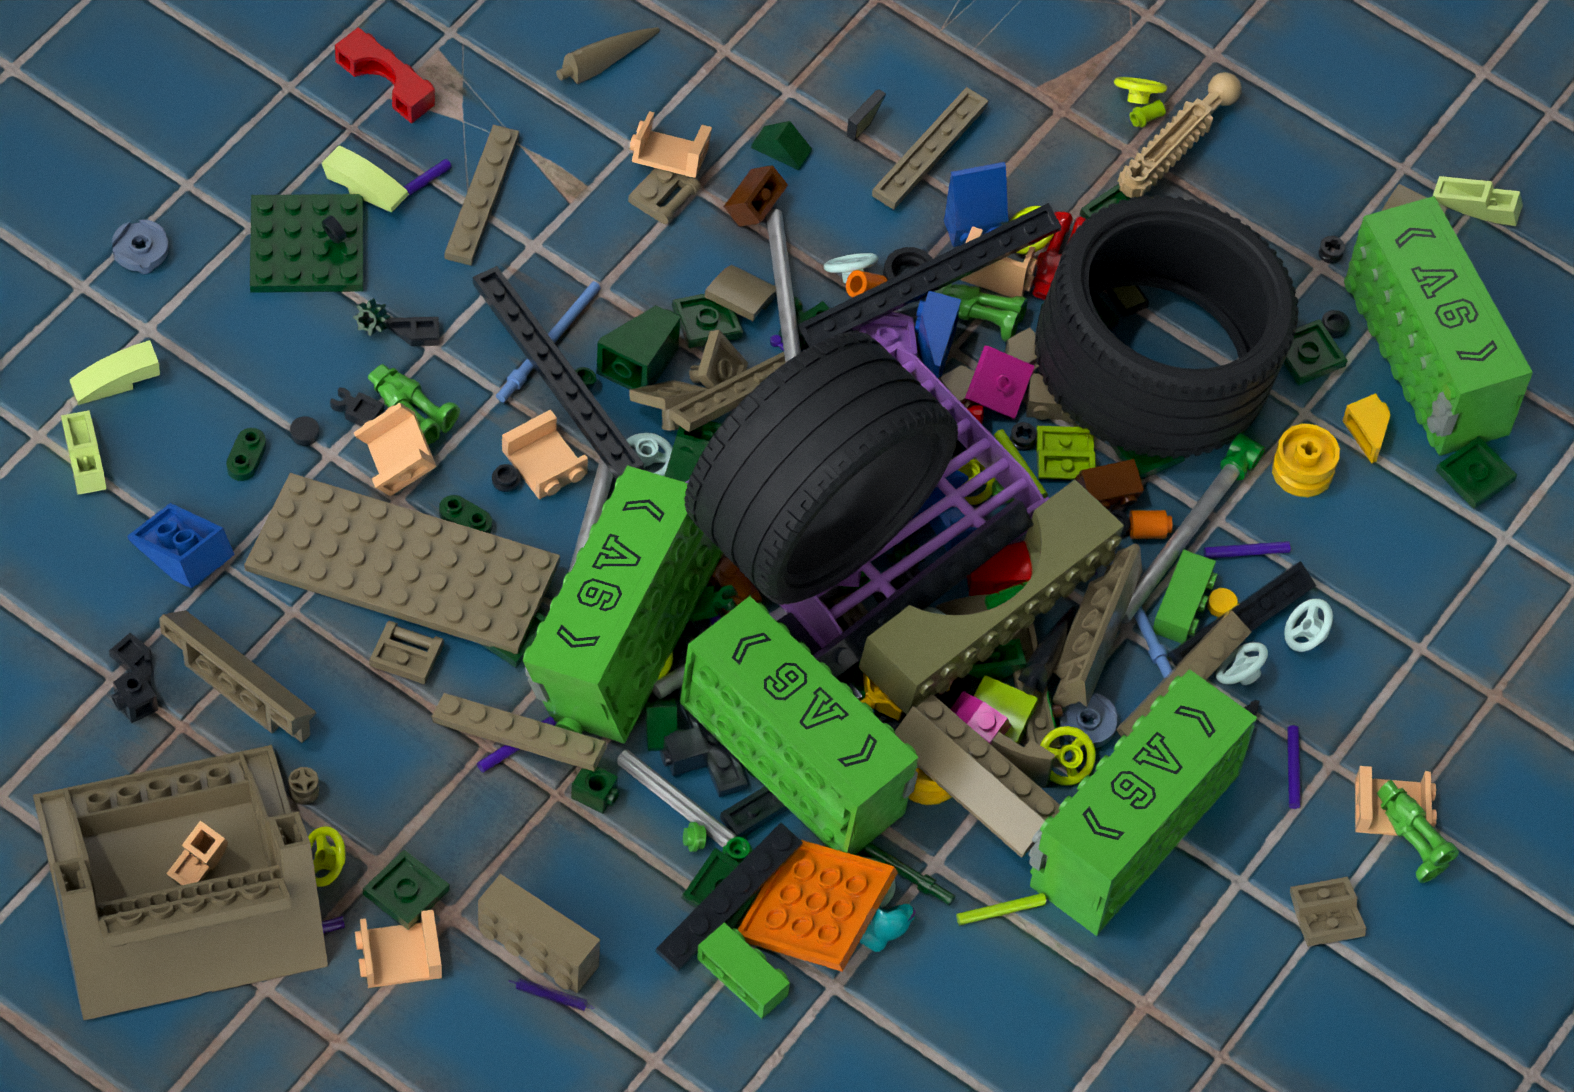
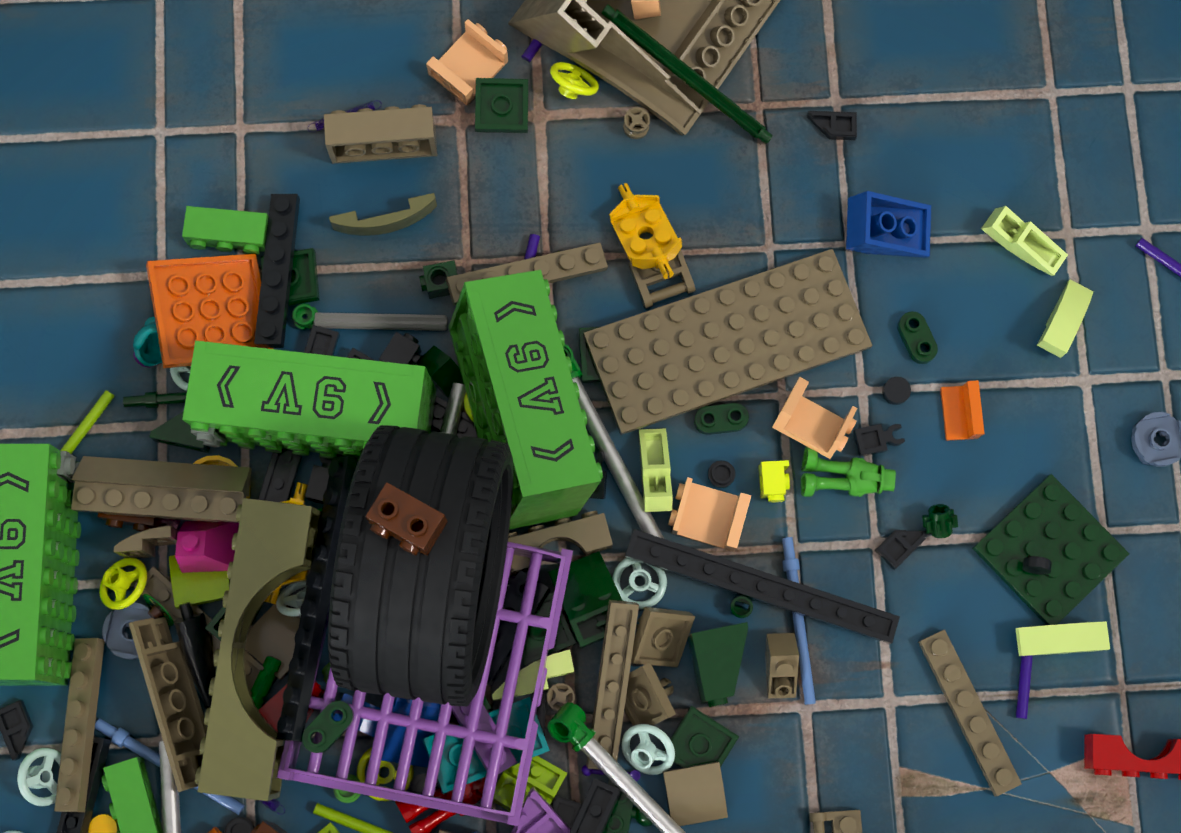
camera: 140 degrees right, 20 degrees up
(134, 696) = (807, 92): black brick -> none
(229, 770) = (687, 74): none -> dark green piece
(237, 676) = (752, 151): dark tan slope -> none
(268, 376) = (962, 411): none -> orange panel
(385, 663) = (640, 215): none -> yellow plate
(469, 440) = (773, 480): none -> neon yellow brick
(558, 513) = (655, 470): none -> yellowish green slope
(561, 858) = (419, 208): none -> olive slope
(592, 319) = (781, 665): none -> dark tan slope
(694, 836) = (342, 300): bright green plate -> none
(754, 336) = (646, 751): none -> light aqua piece
(821, 408) = (406, 520): none -> reddish brown brick
(925, 835) = (178, 434): none -> dark green slope
(987, 495) = (328, 727): none -> dark green plate

